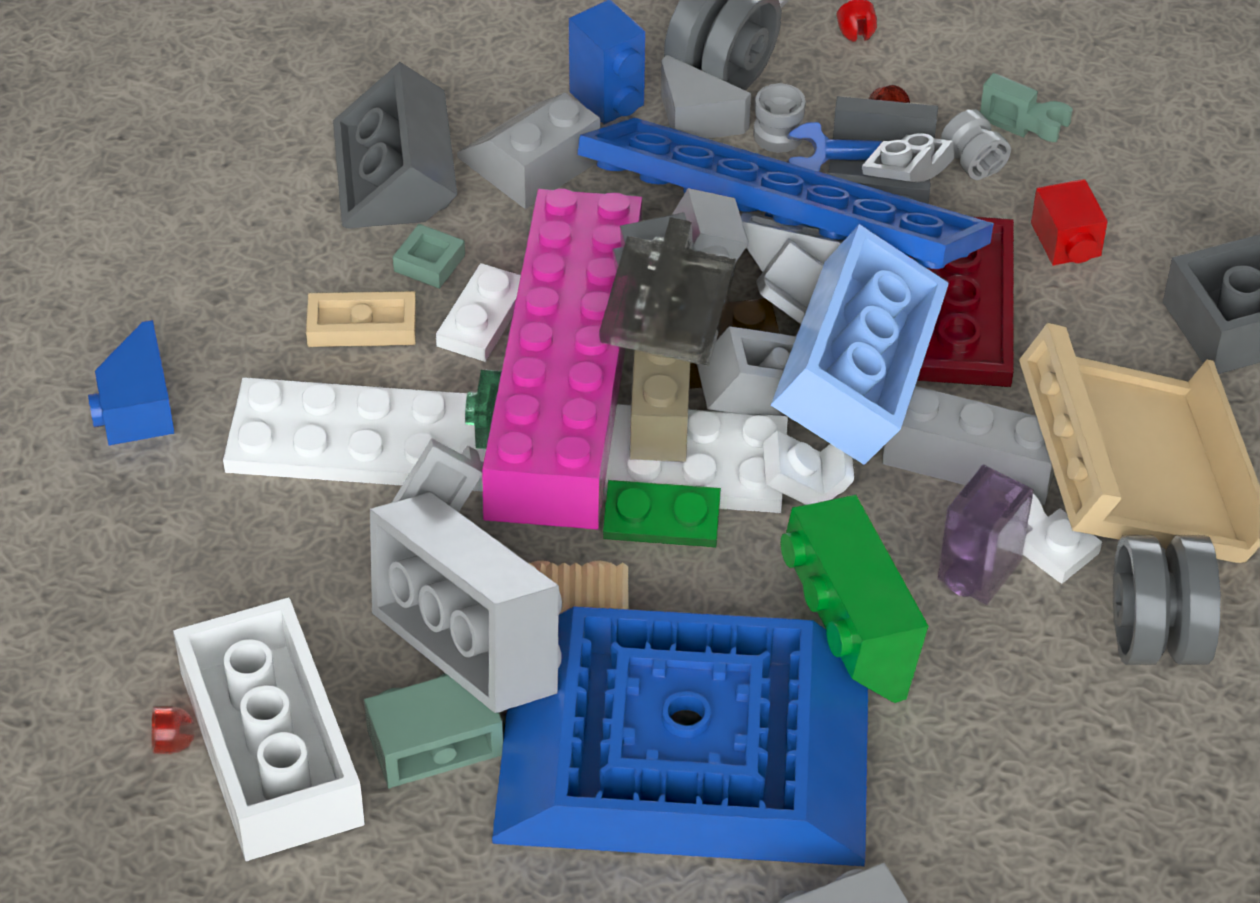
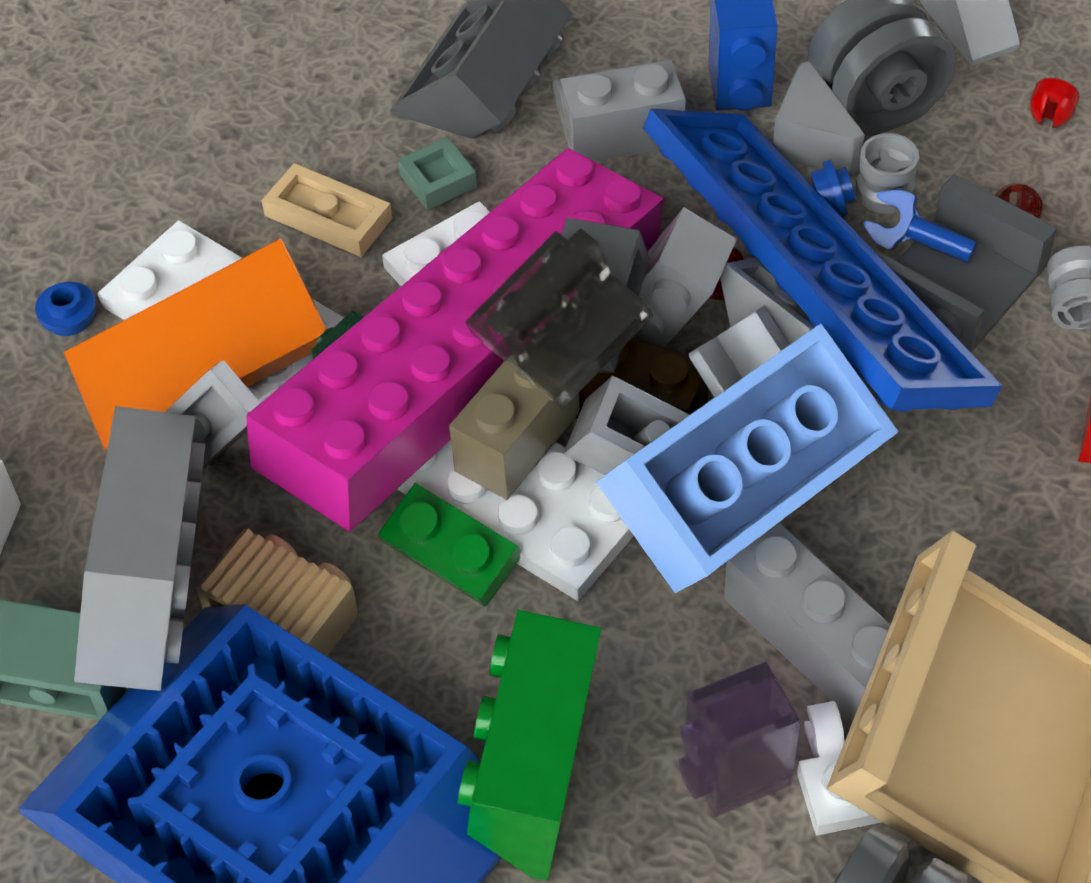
camera: 35 degrees right, 5 degrees up
(132, 390) = (76, 187): blue slope -> none
(203, 493) = (70, 318): none -> blue plate
(353, 459) = (245, 314): none -> orange tile
(747, 138) = (834, 186): none -> blue plate
(804, 471) = (617, 568): white bracket -> none
(910, 159) = (986, 279): light grey slope -> none
(976, 318) = (934, 467): dark red plate -> none

